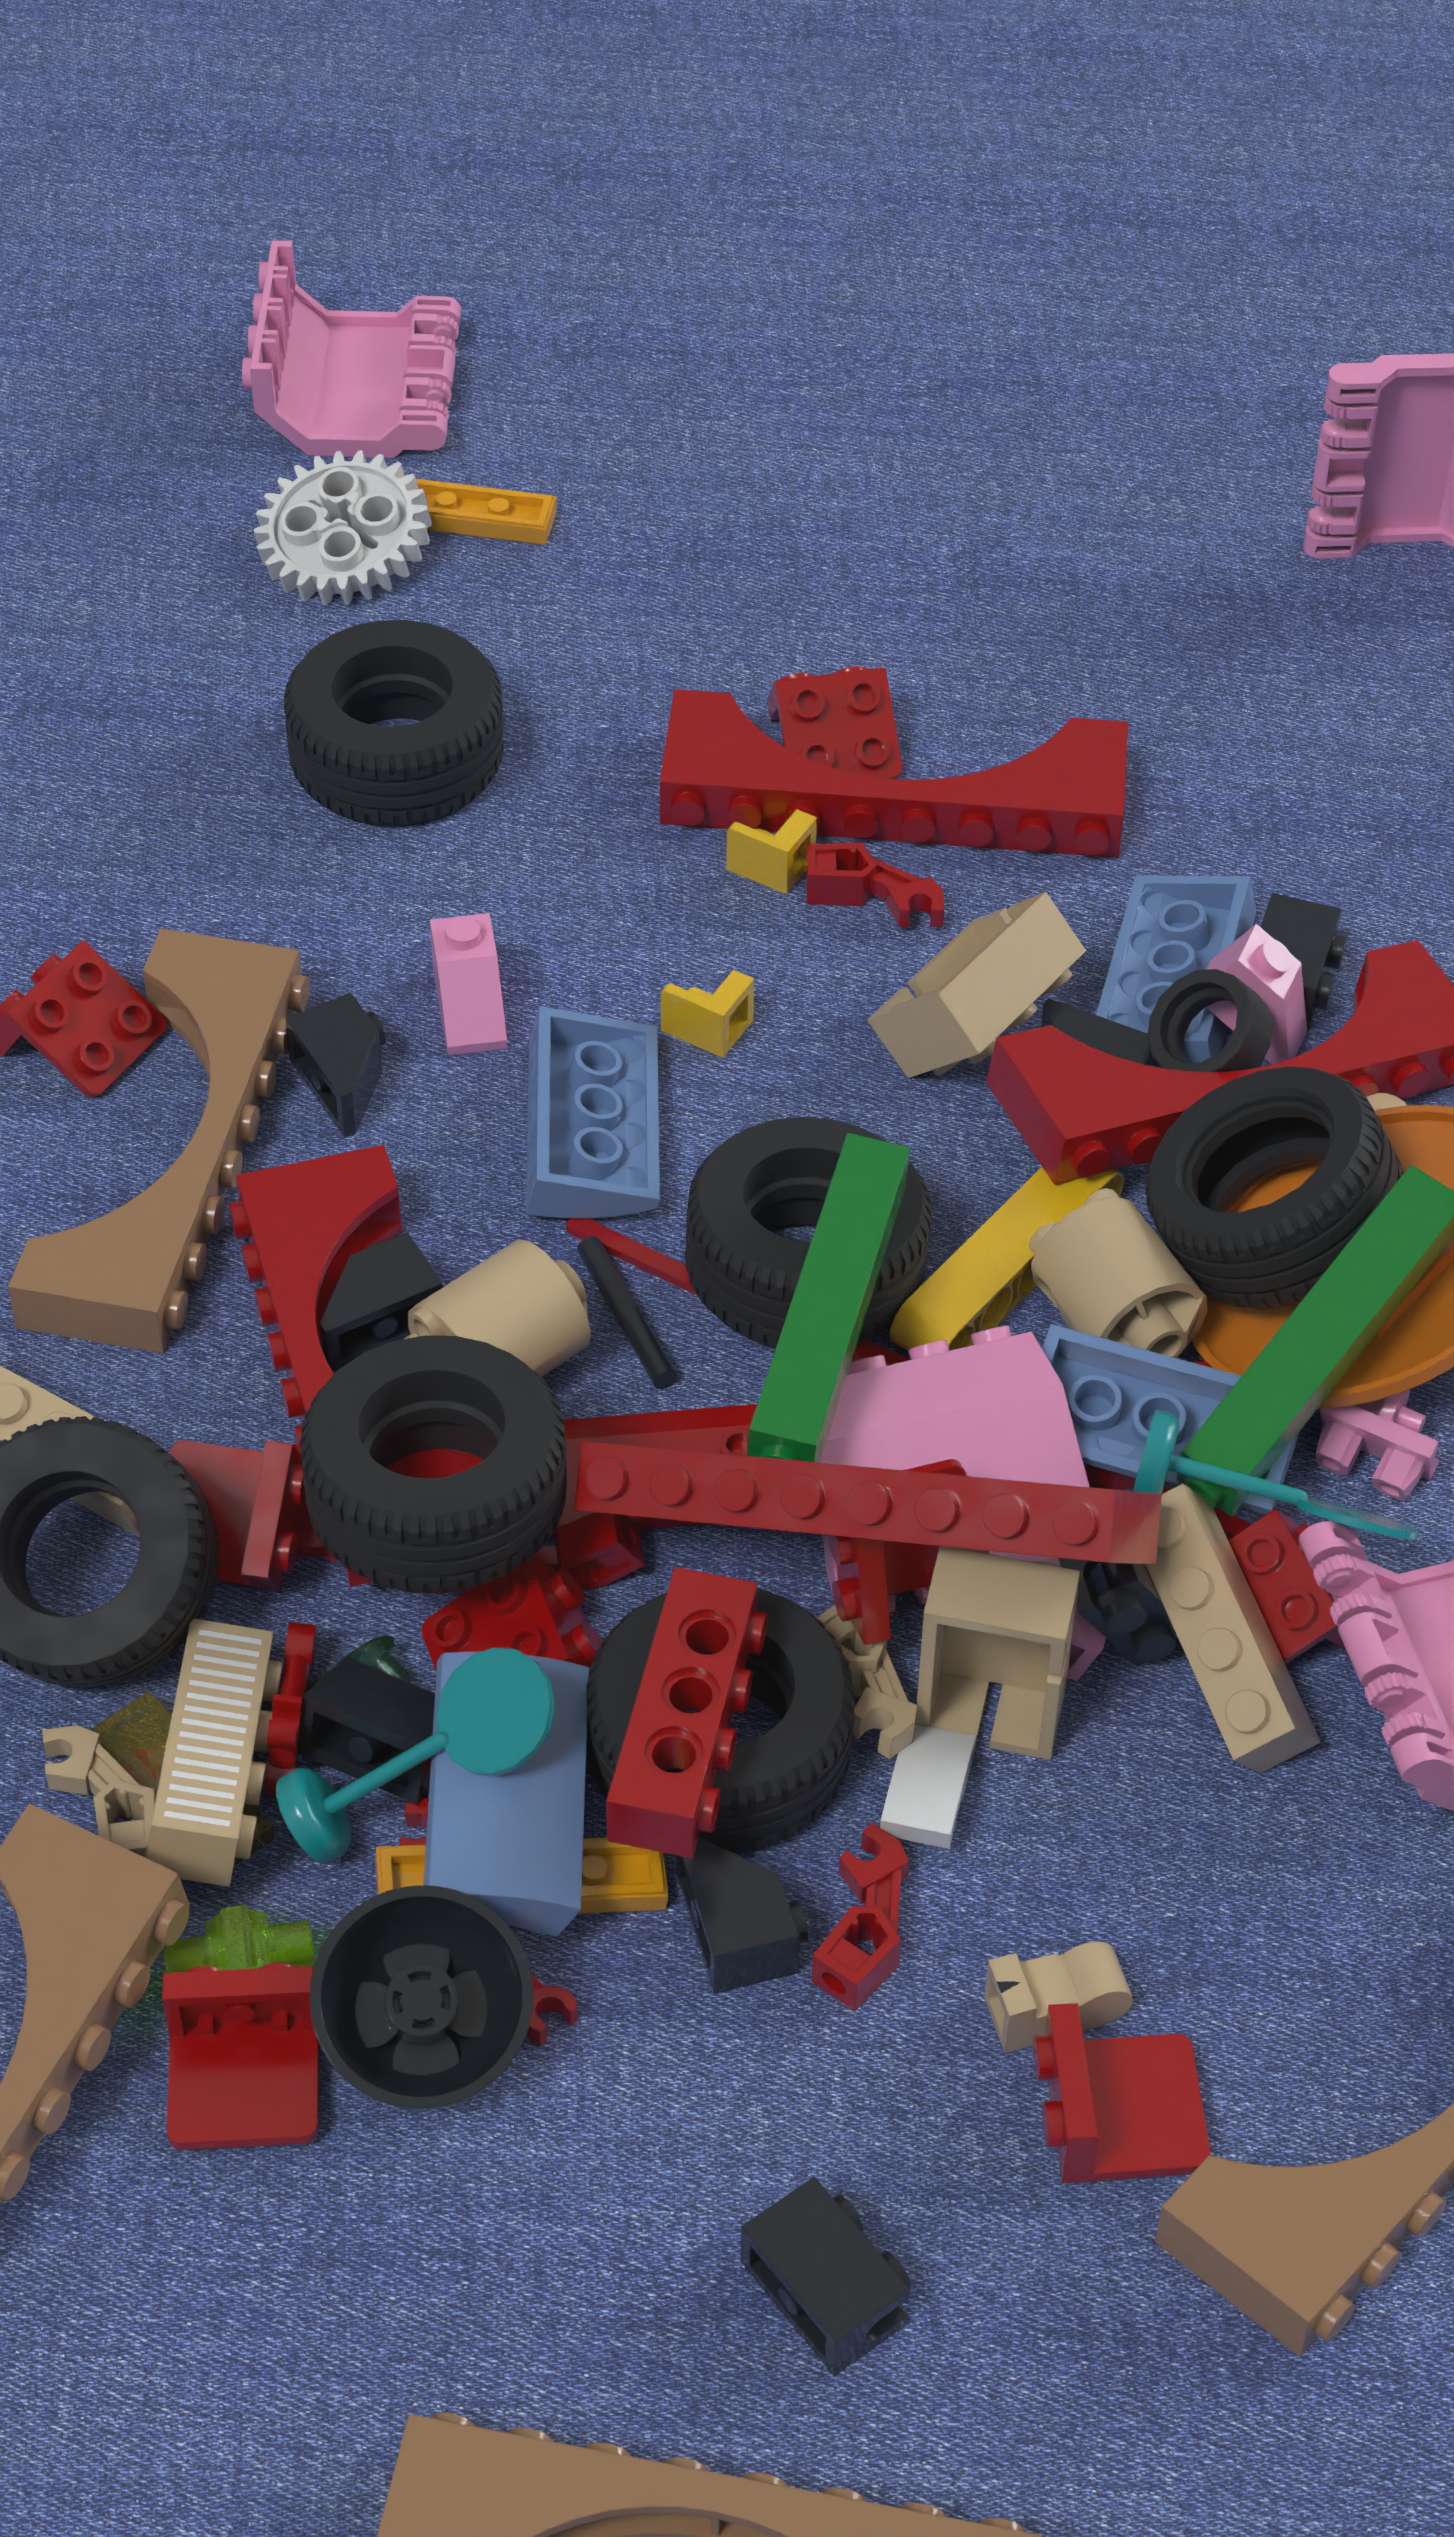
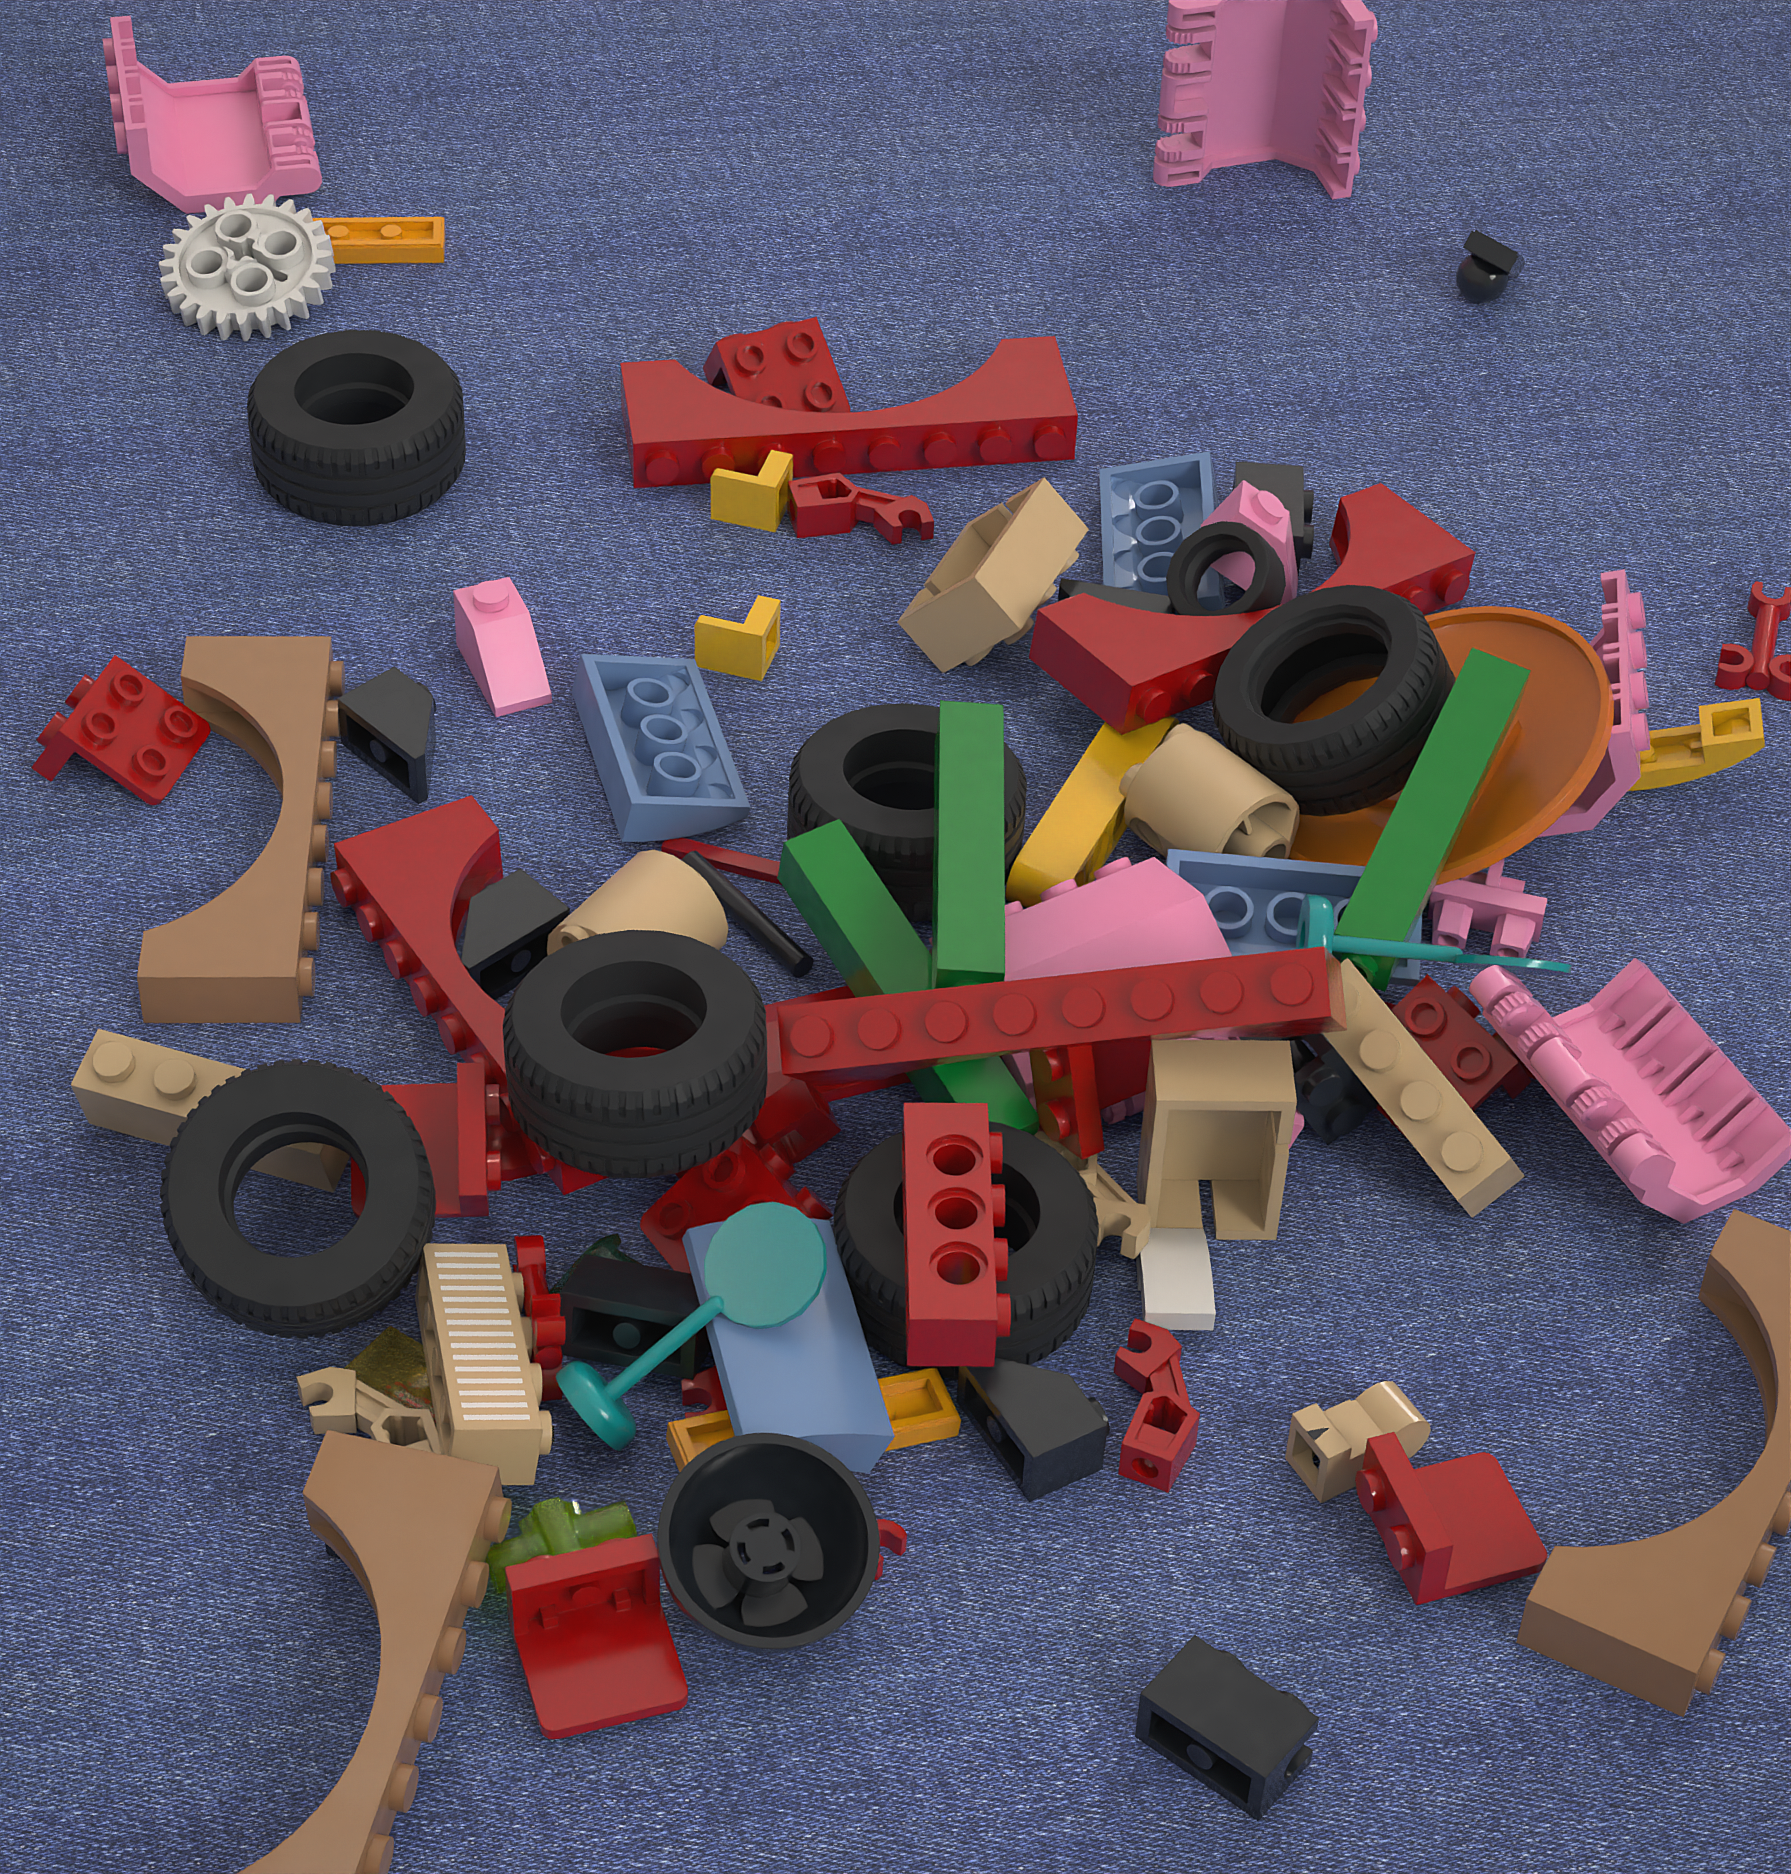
camera: 15 degrees left, 5 degrees down
(723, 1395) = (884, 955): none -> green brick

